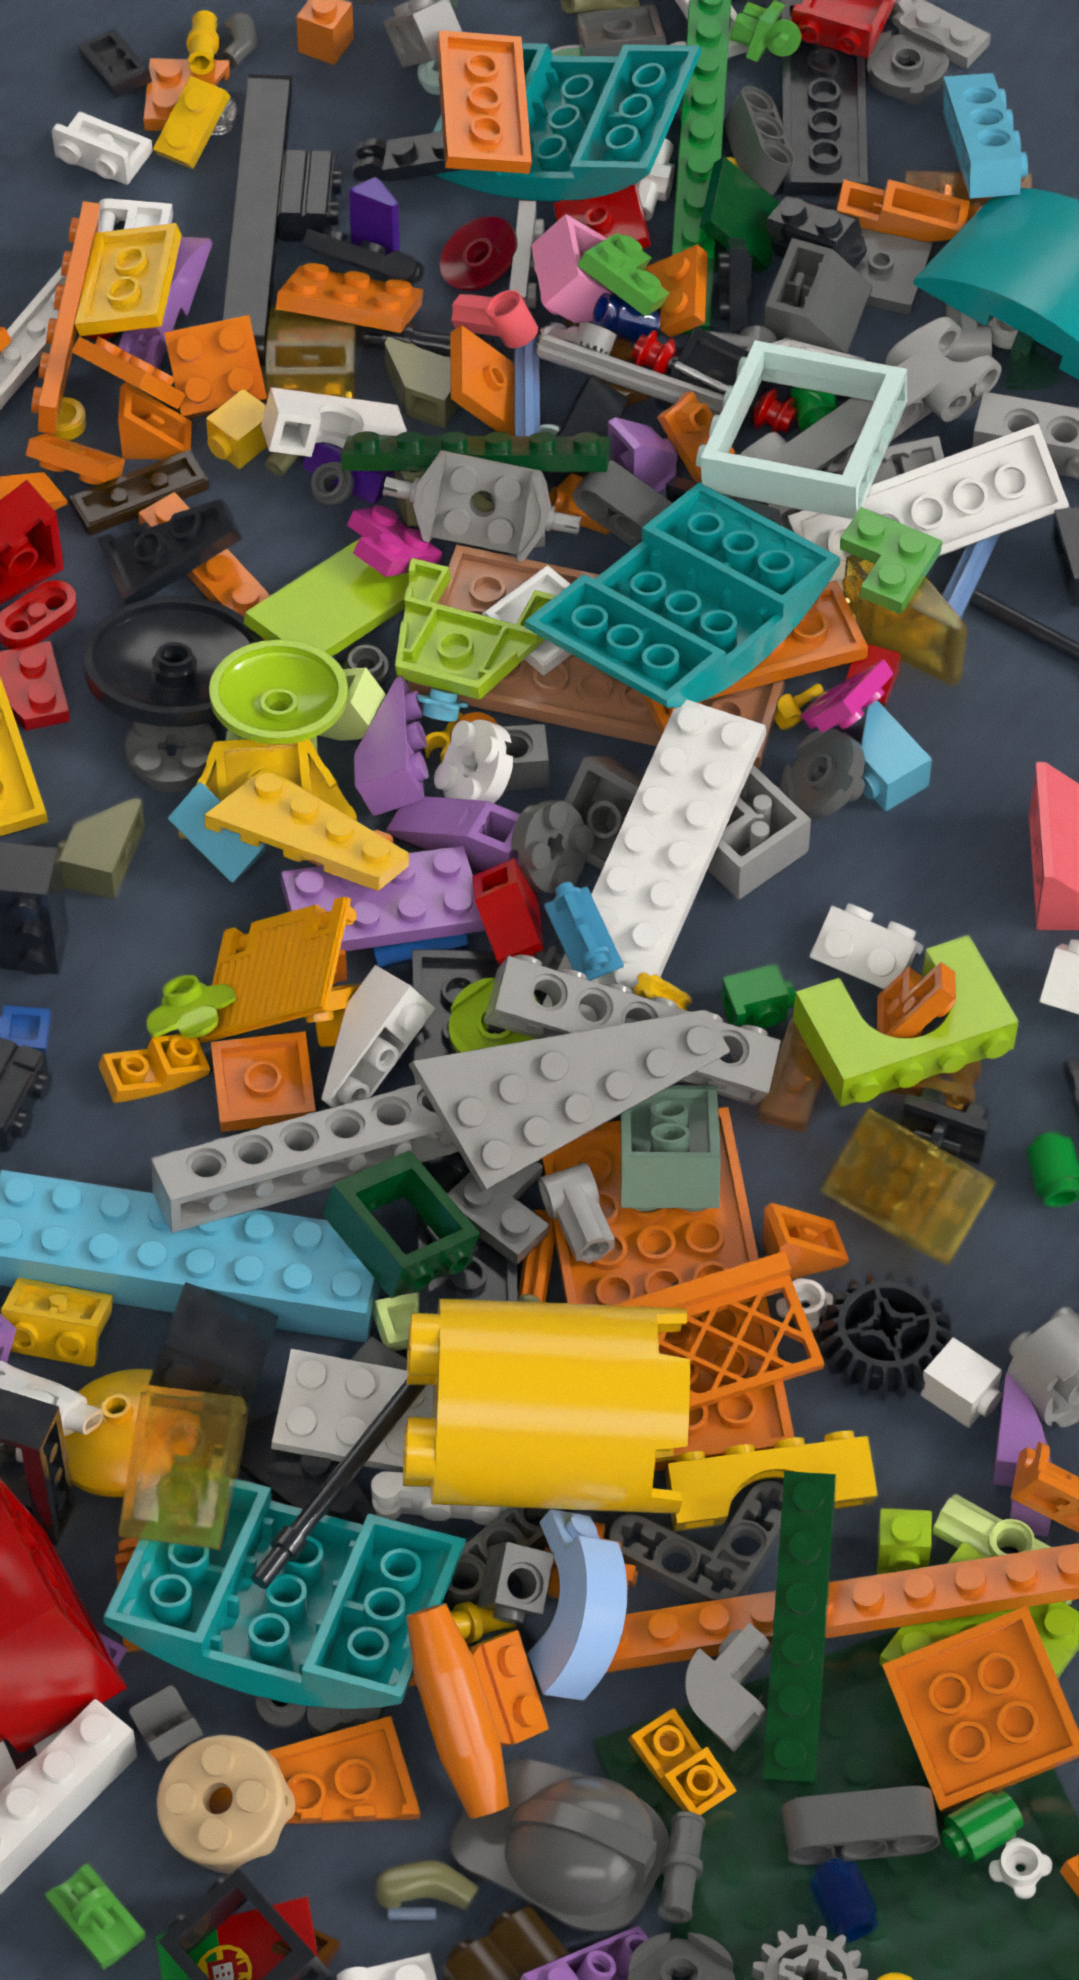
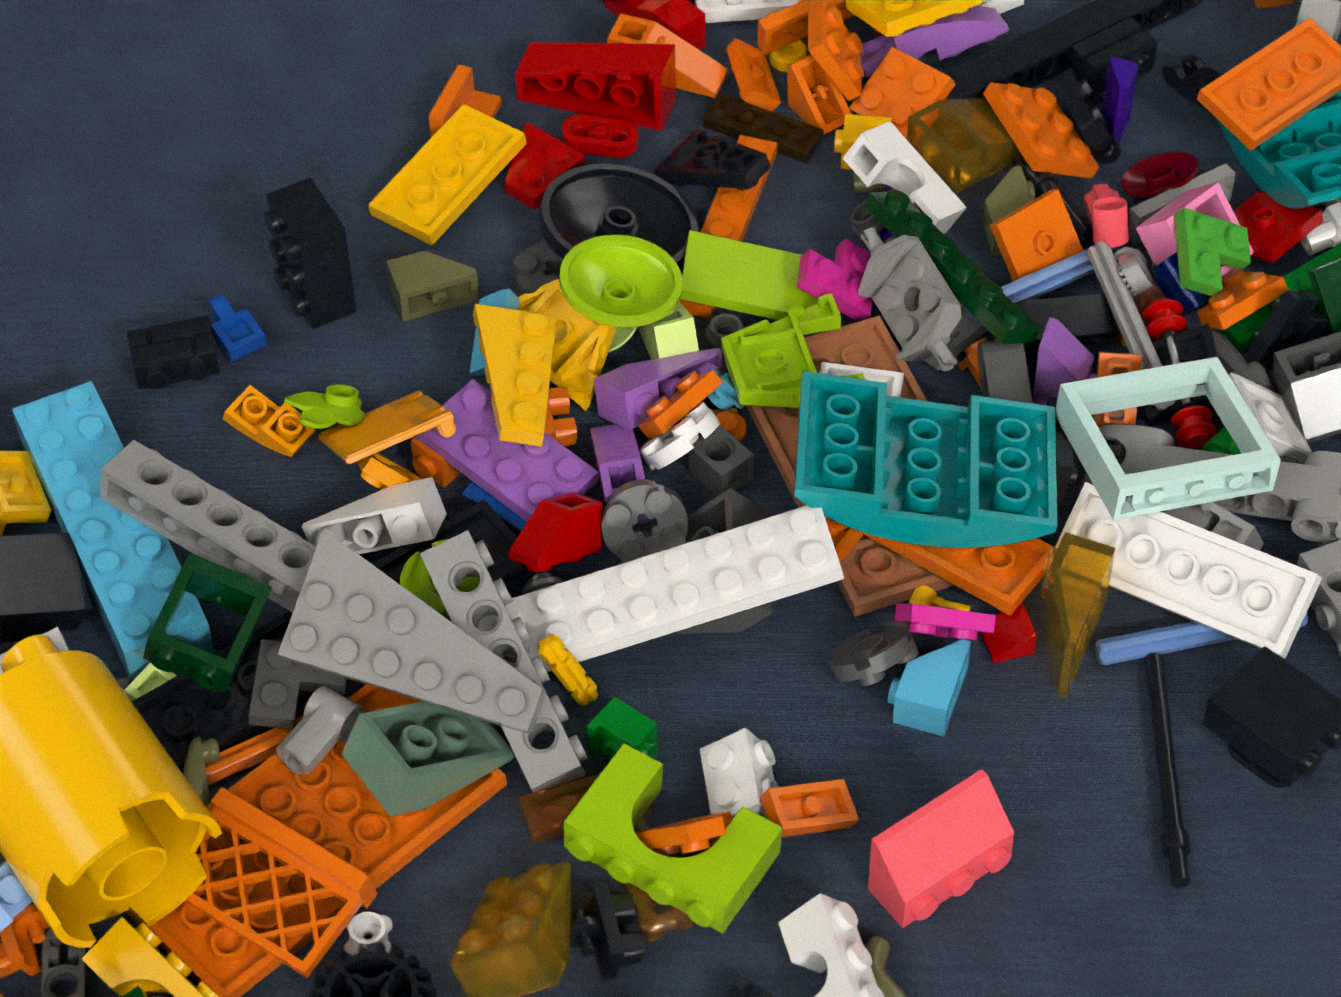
camera: 55 degrees right, 5 degrees down
(262, 1080) = (303, 485): orange plate -> none
(444, 740) = (667, 412): none -> orange plate
(582, 932) = (562, 578): dark azure hinge -> none
(760, 837) = (773, 648): light grey brick -> none
(807, 1239) = (417, 895): orange slope -> none
(899, 555) = (1093, 565): bright green plate -> none
(941, 912) = (810, 807): none -> orange plate

